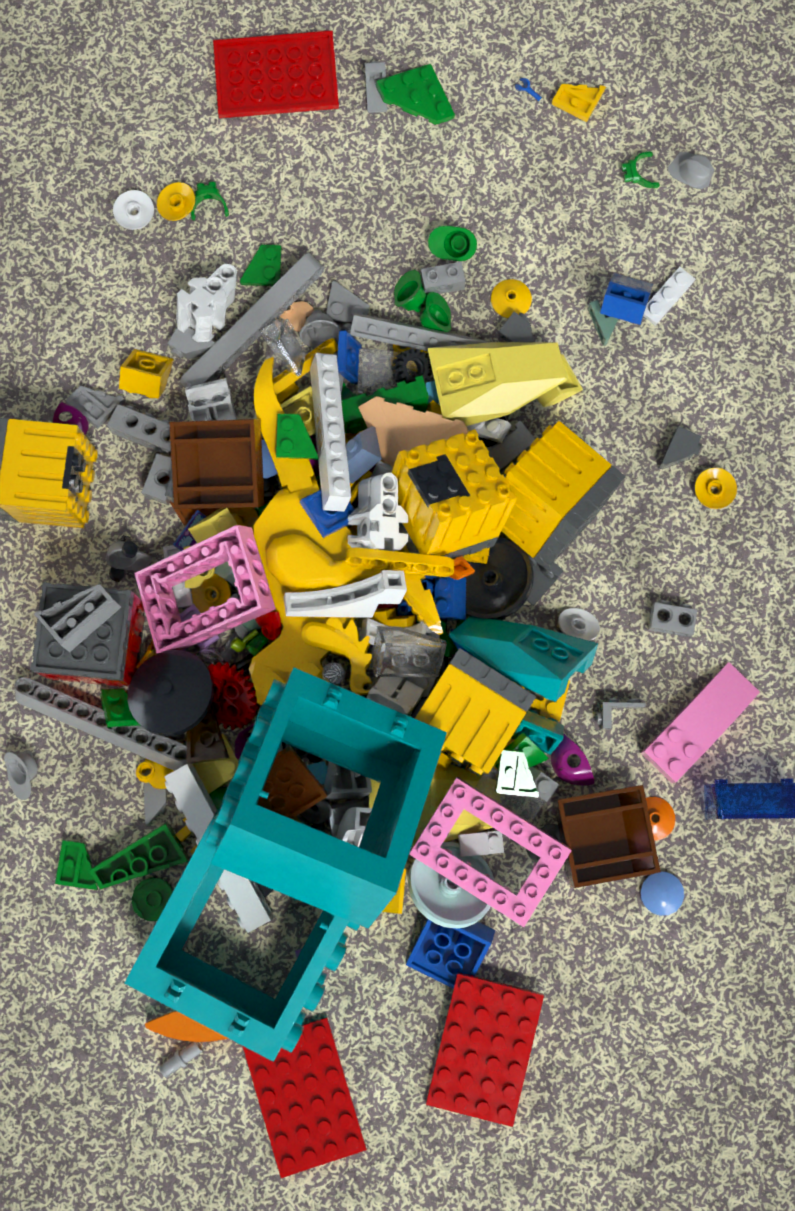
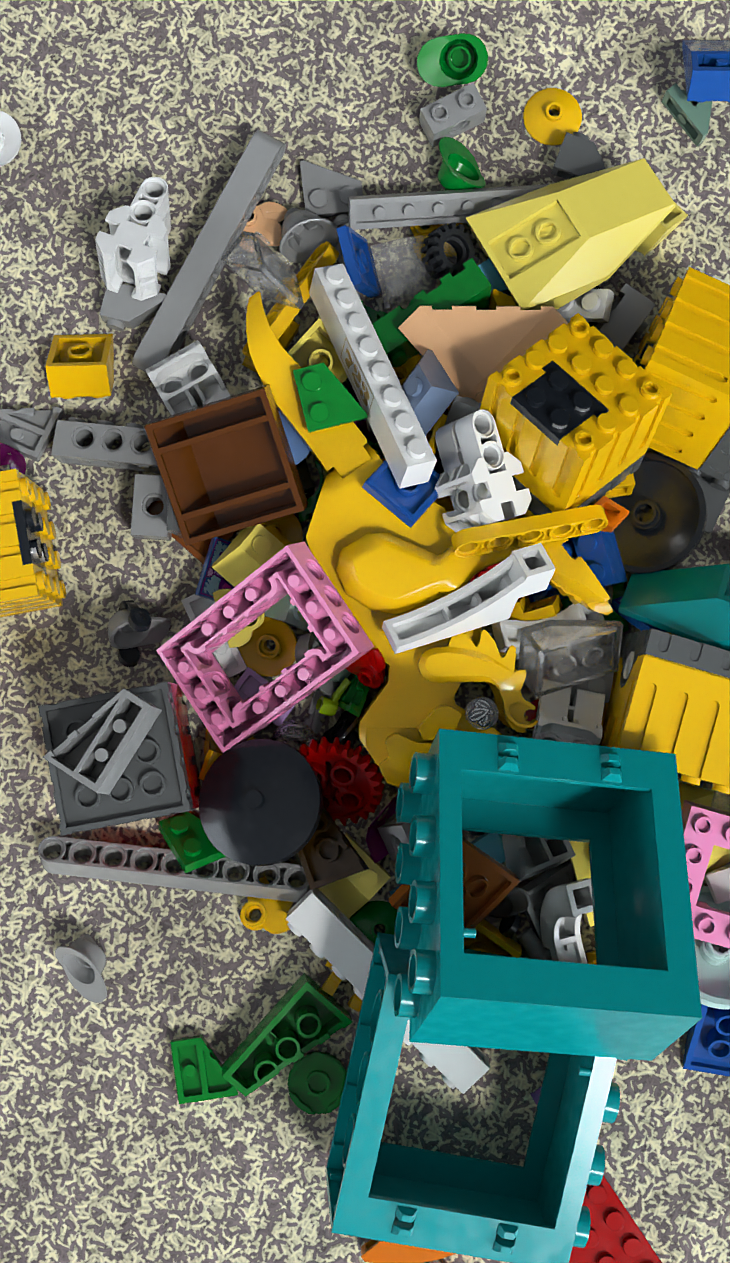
camera: 20 degrees left, 5 degrees up
(154, 802) = (279, 953): light grey slope -> none
(171, 196) = (38, 104): yellow dish -> none
(207, 192) = (86, 84): green helmet -> none
(264, 267) = (199, 169): green wing -> none
(409, 291) = (412, 145): green piece -> none

